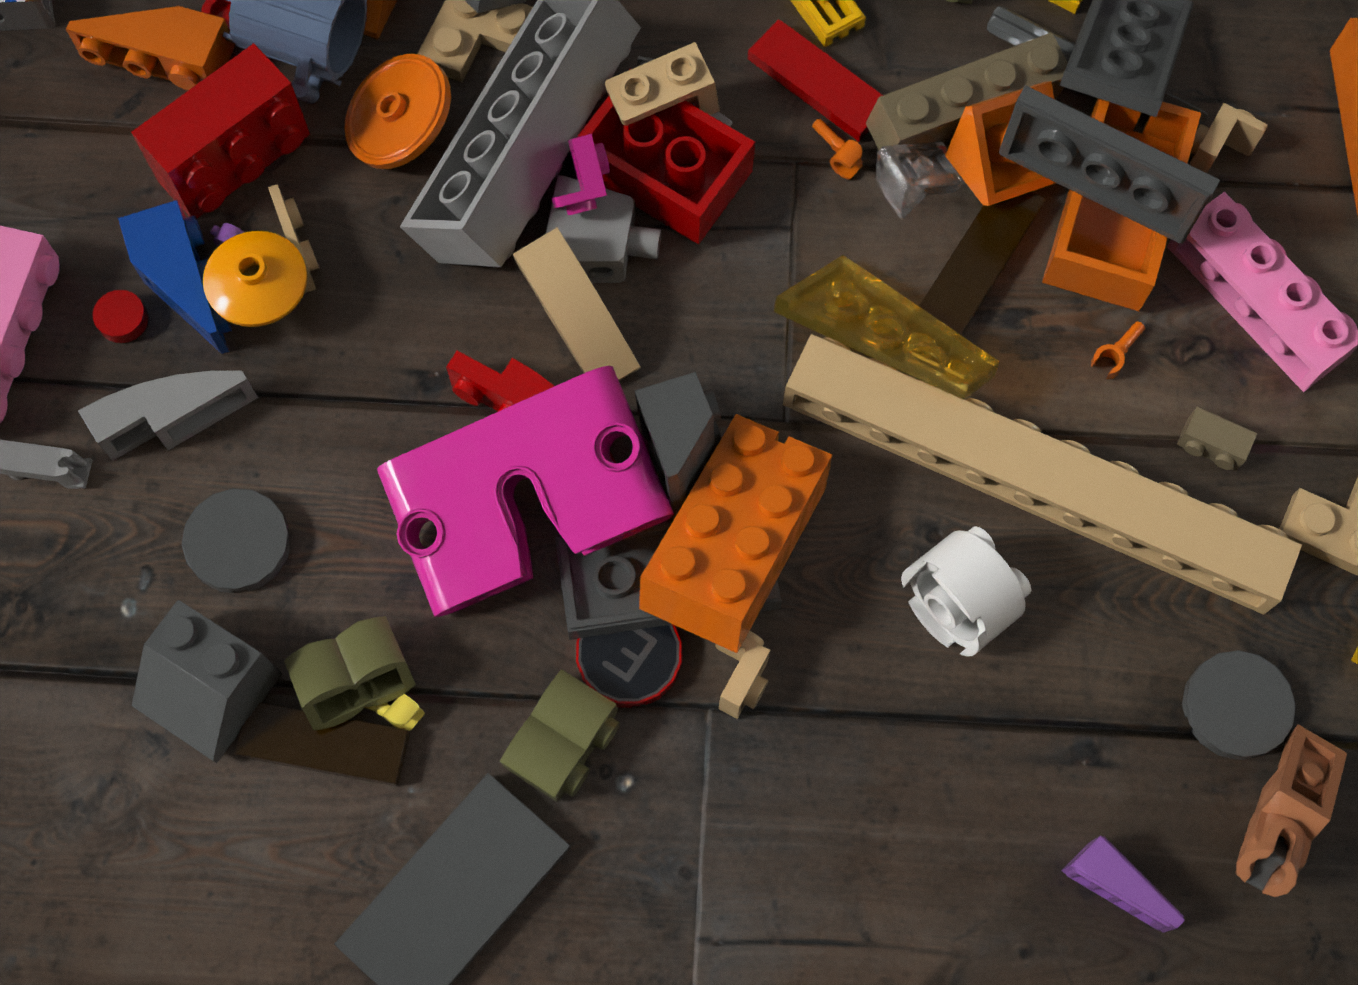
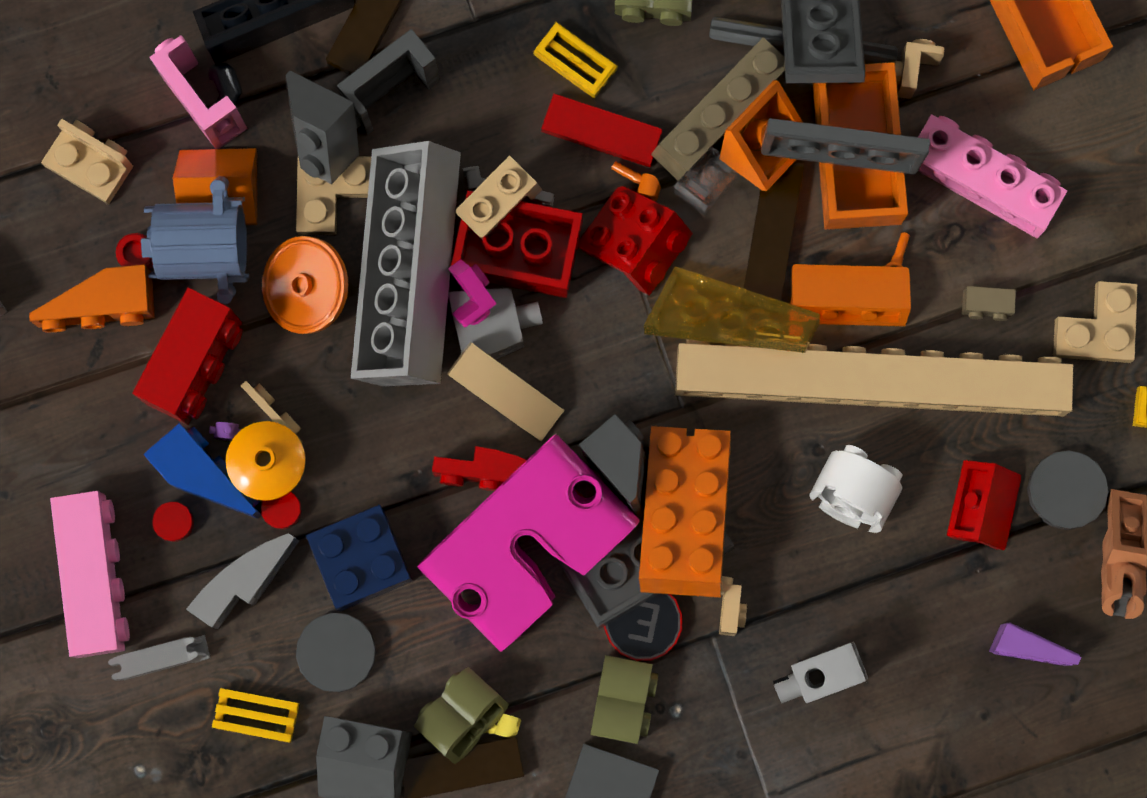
camera: 20 degrees left, 10 degrees up
(70, 553) = (222, 709): none -> yellow tile
(252, 351) = (282, 512): none -> red tile
(314, 437) = (359, 558): none -> dark blue brick
(813, 208) = (636, 237): none -> red bracket
(856, 808) = (841, 670): none -> light grey torso
(1051, 365) = (853, 293): none -> orange panel
(1123, 679) = (984, 504): none -> red panel

